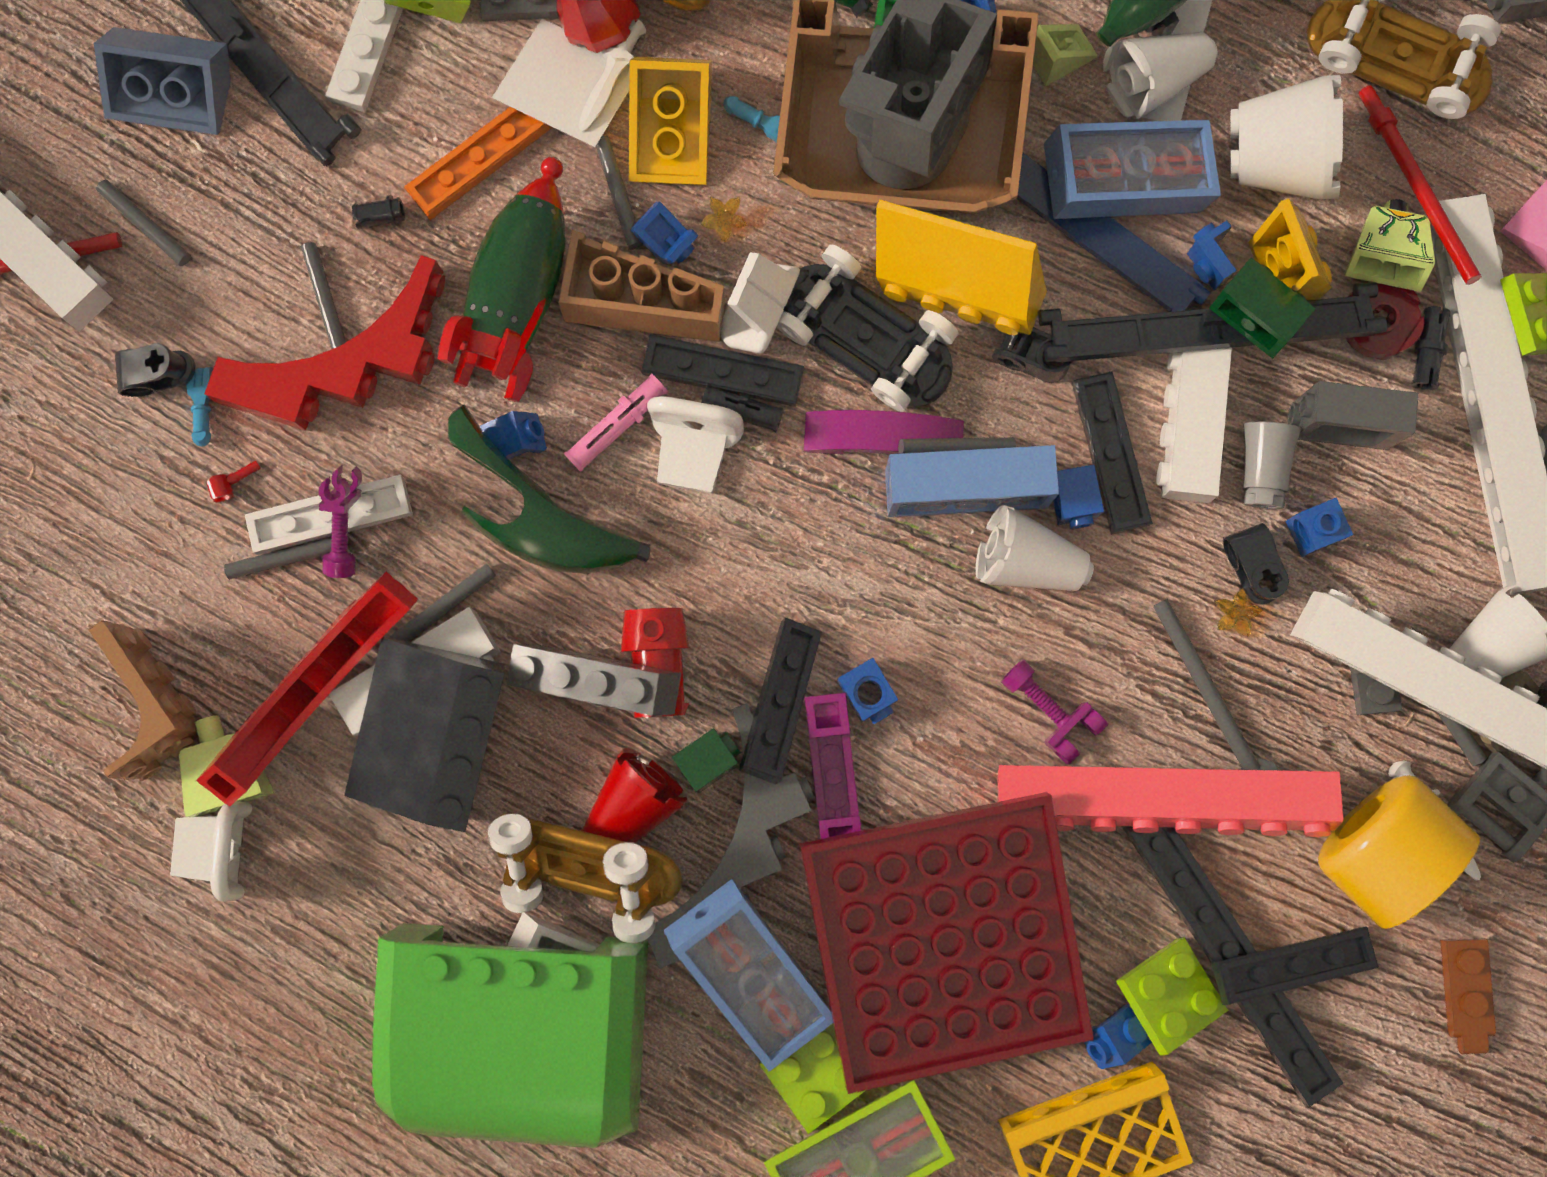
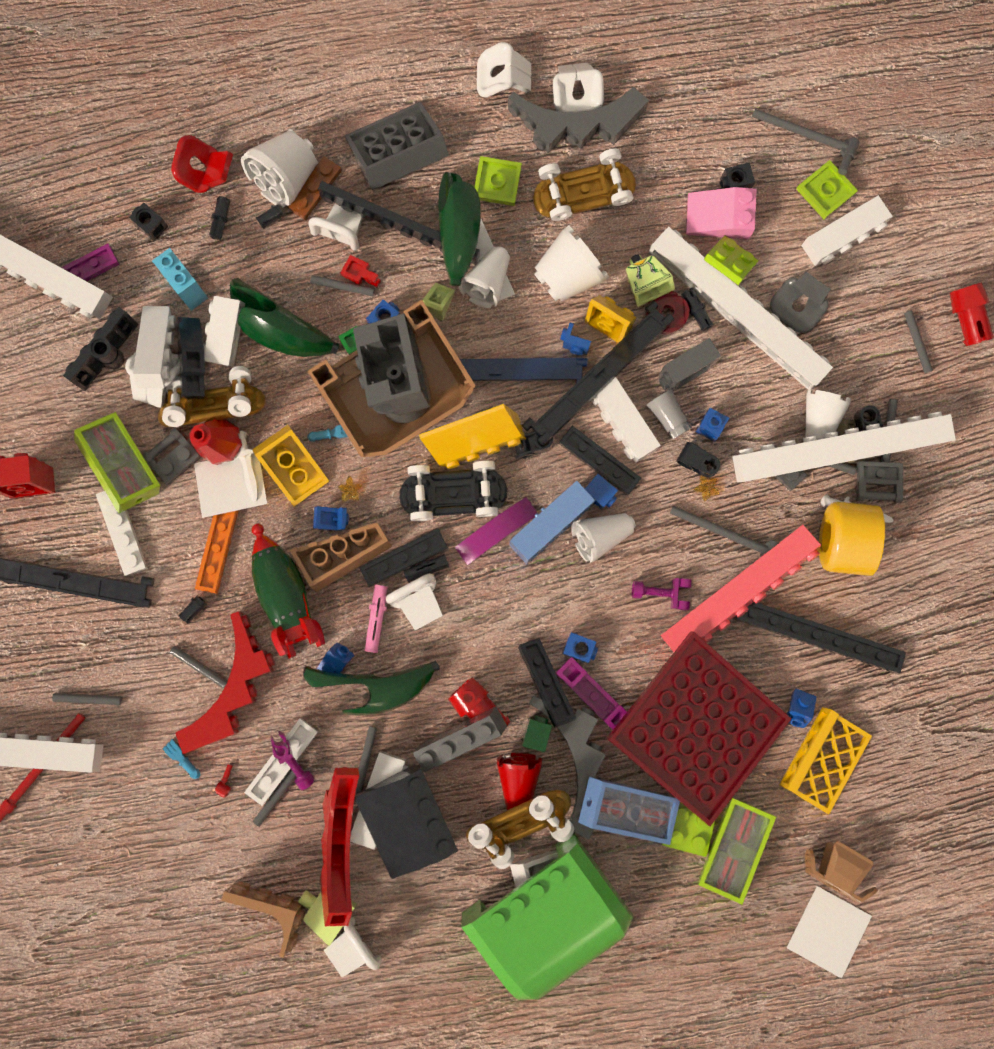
camera: 45 degrees left, 0 degrees up
(152, 369) = (148, 761): black piece -> none
(163, 79) = (43, 627): sand blue slope -> none
(617, 191) = (292, 515): dark grey bar -> none
(757, 303) = (397, 518): white piece -> none
(953, 444) = (534, 509): dark grey bar -> none
(1131, 168) = (511, 331): brick -> none
(1171, 996) = (808, 673): lime plate -> none
(1262, 307) = (616, 351): dark green brick -> none
(1294, 965) = (848, 619): black tile -> none
(1384, 123) = (601, 226): red bar -> none
(1468, 993) = (926, 572): dark orange hinge -> none

